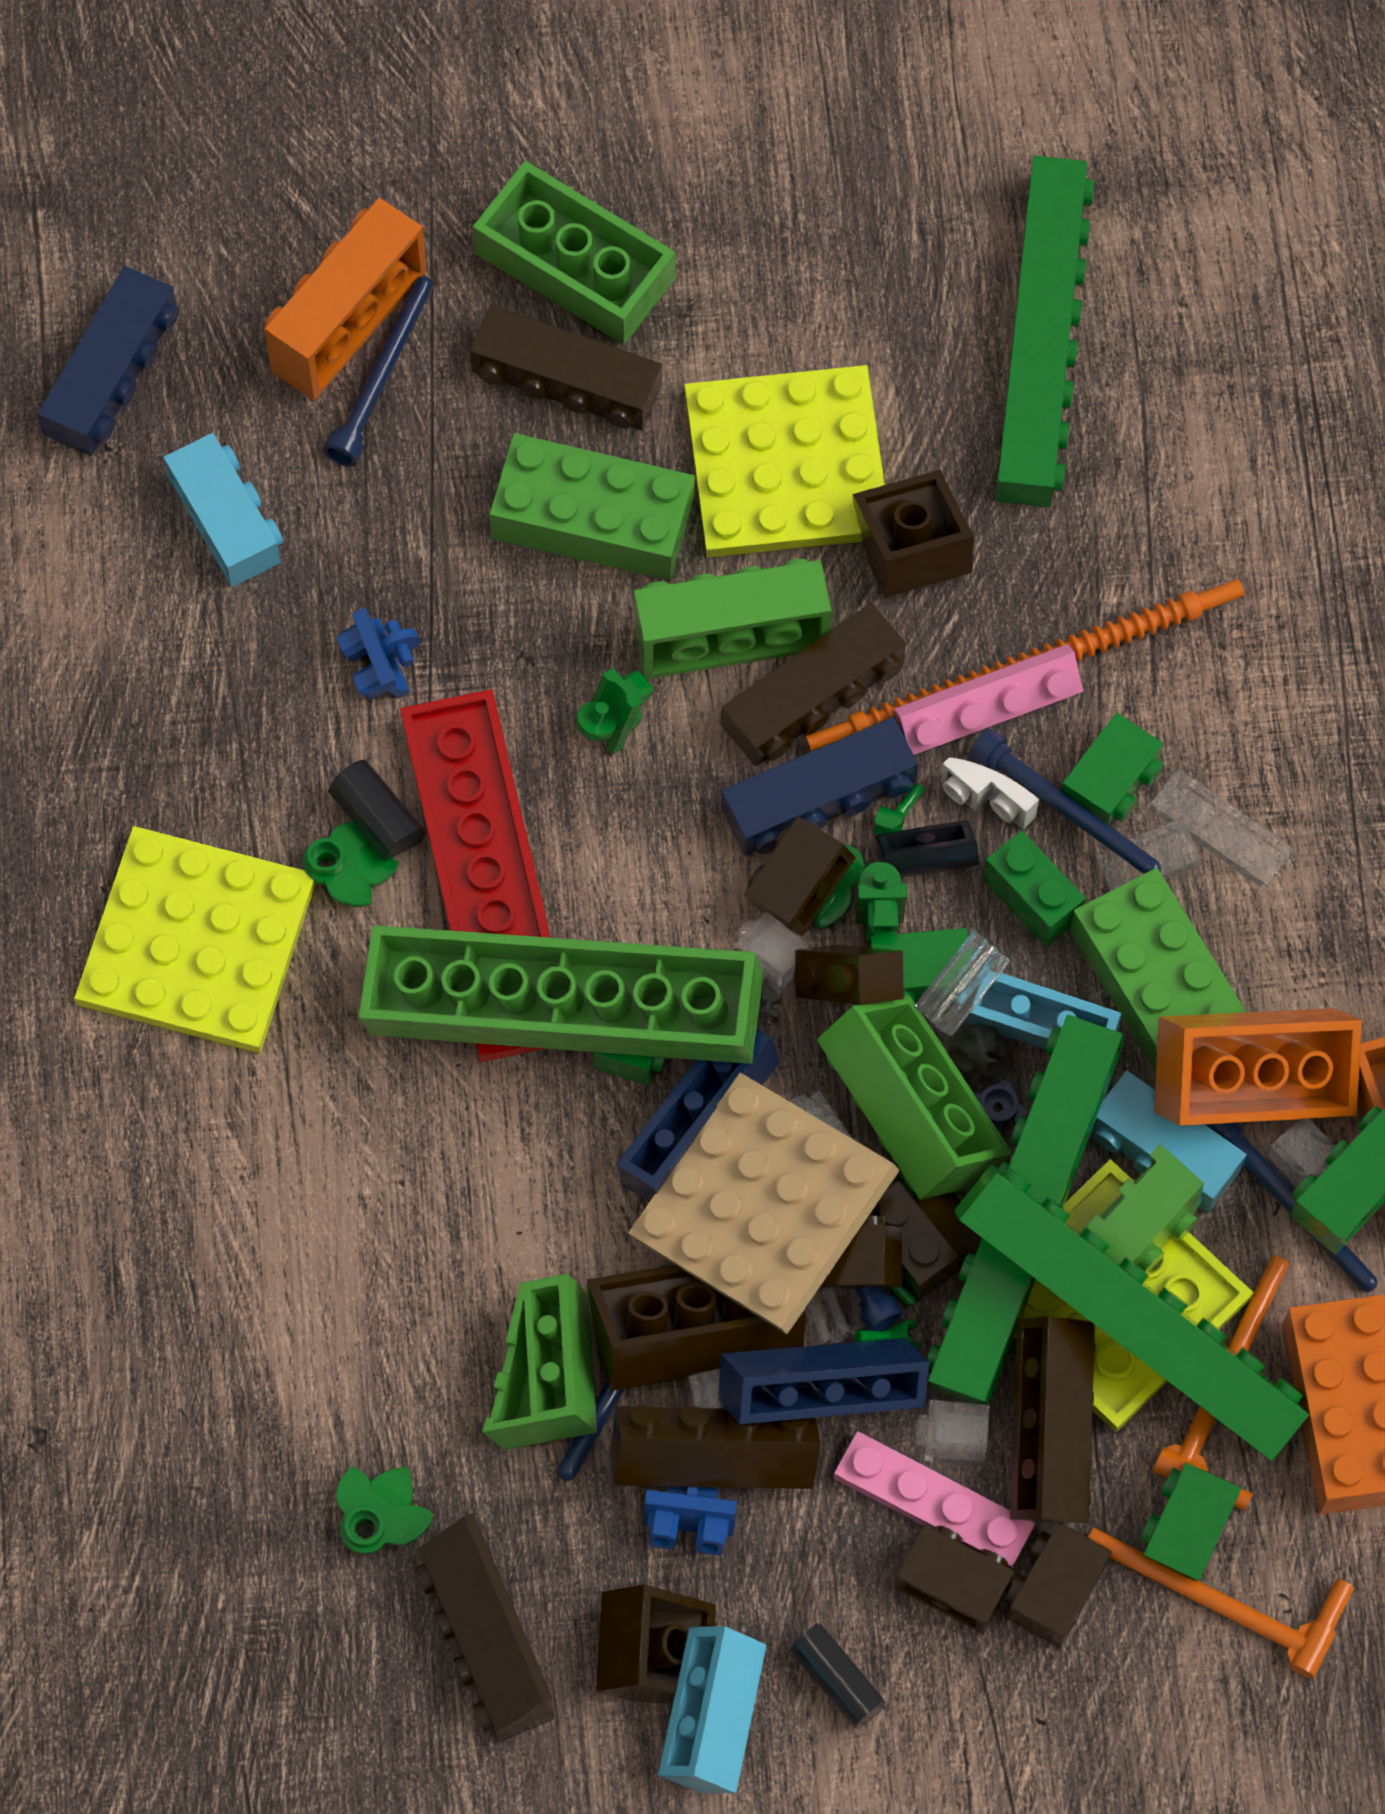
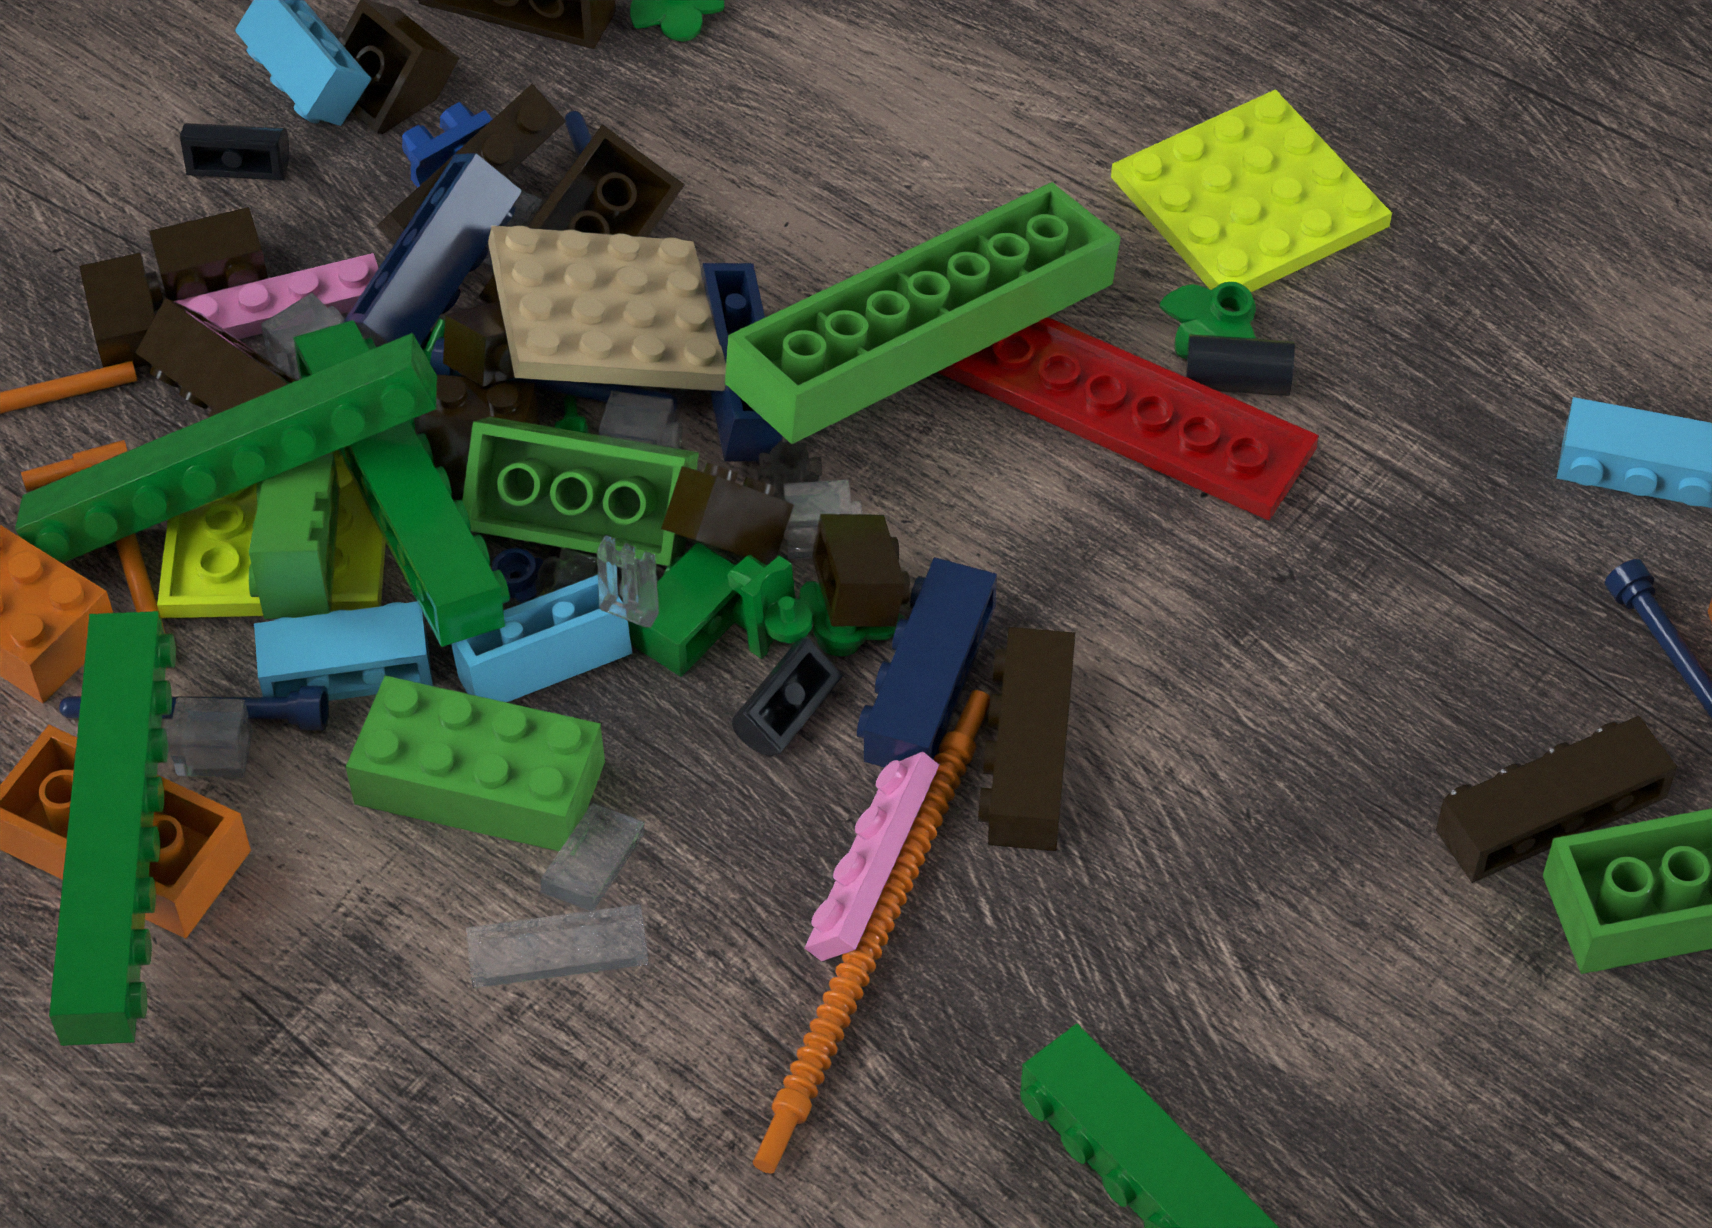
camera: 135 degrees right, 15 degrees down
(370, 638) = (1388, 461): blue hips -> none
(547, 1369) = (660, 127): bright green wedge -> none
(592, 506) = (1381, 705): bright green brick -> none
(614, 708) = (1155, 558): green hips -> none
(730, 618) = (1152, 704): bright green brick -> none
(782, 458) = (1286, 911): neon yellow plate -> none
(891, 820) = (843, 701): green hand -> none
(914, 533) = (1099, 920): dark brown slope -> none
(976, 784) = (810, 779): white slope -> none
(993, 753) = (817, 822): dark blue piece -> none
(1032, 888) = (661, 738): green brick -> none
(1114, 770) = (699, 891): green brick -> none
(1191, 1520) = (54, 415): green brick -> none
(1257, 1066) = (307, 719): orange brick -> none

